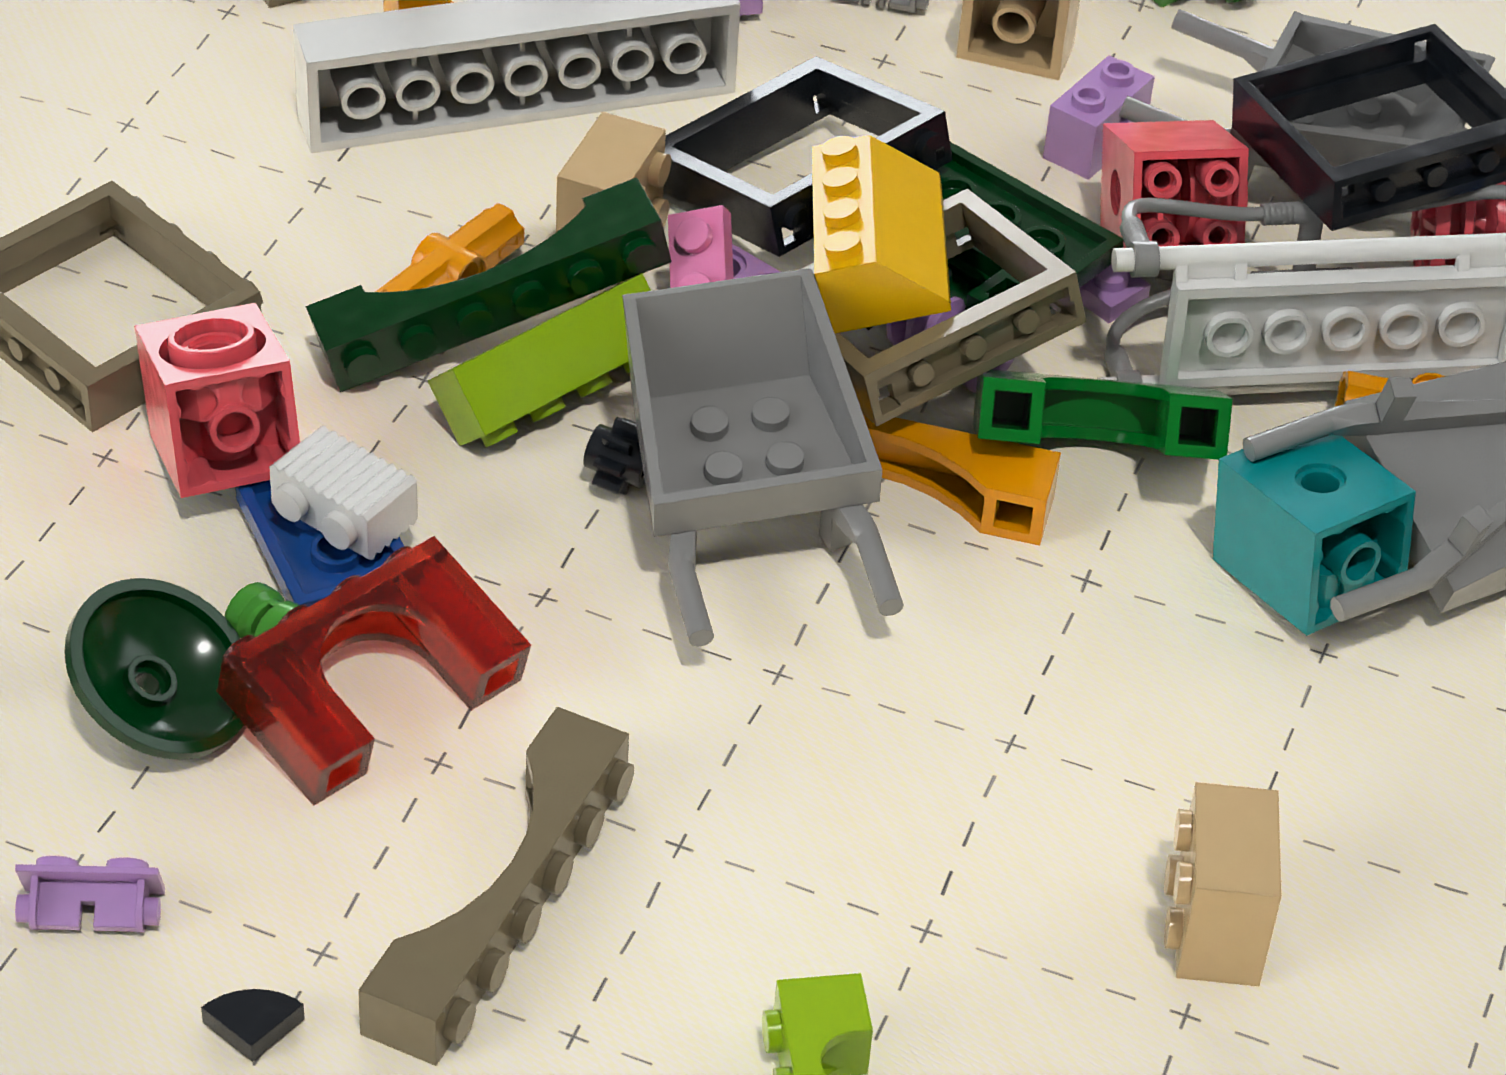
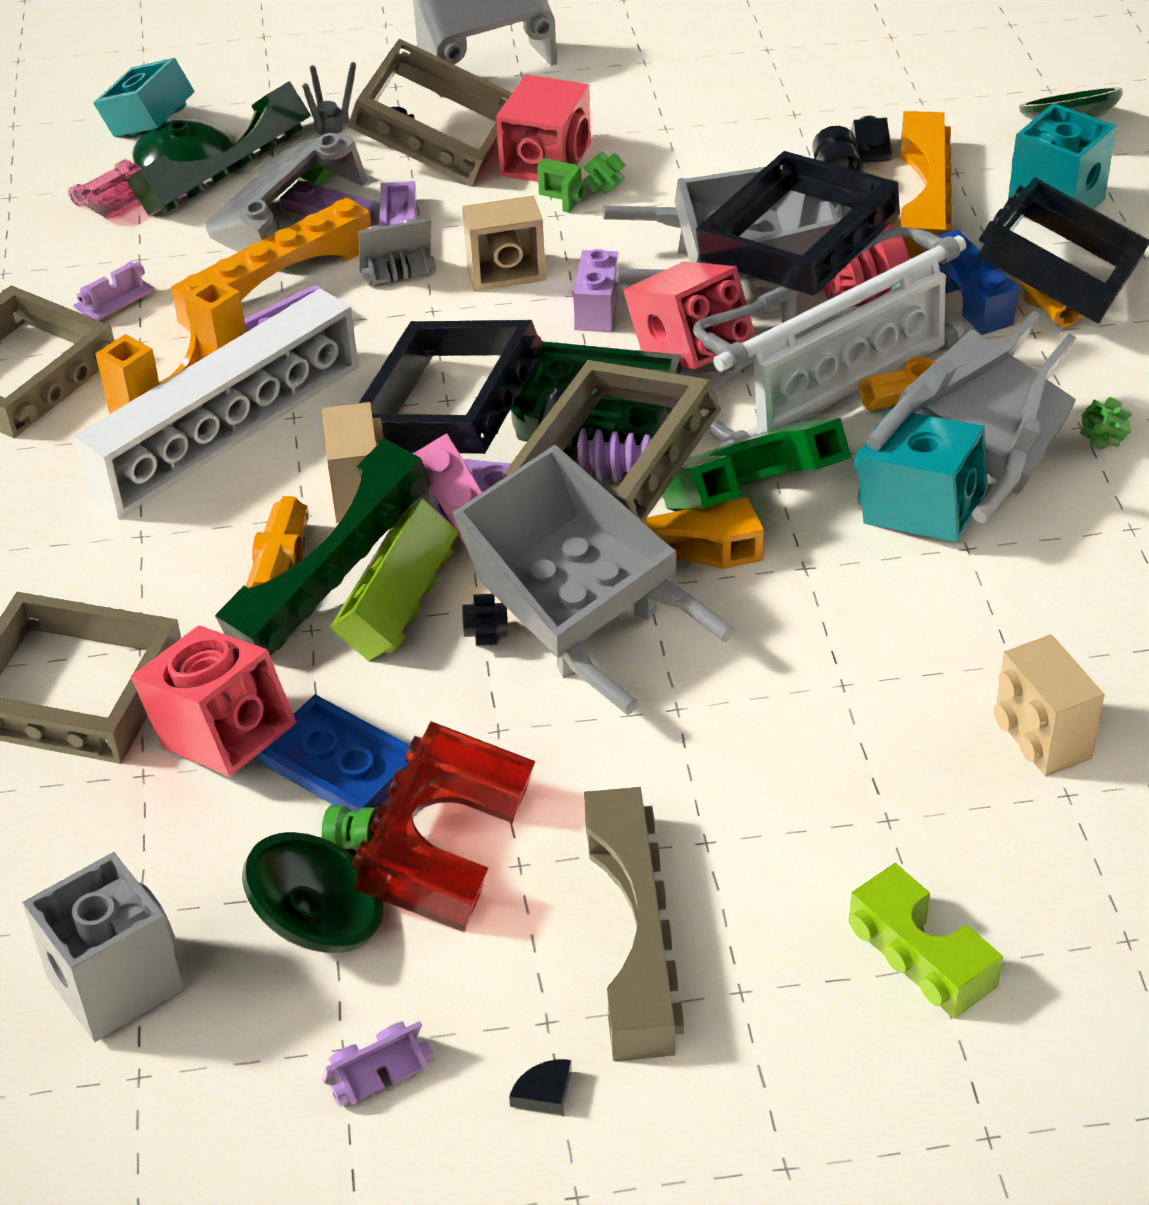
camera: 25 degrees left, 0 degrees up
(344, 493) = (341, 721): white brick -> none
(877, 234) = (562, 408): yellow slope -> none

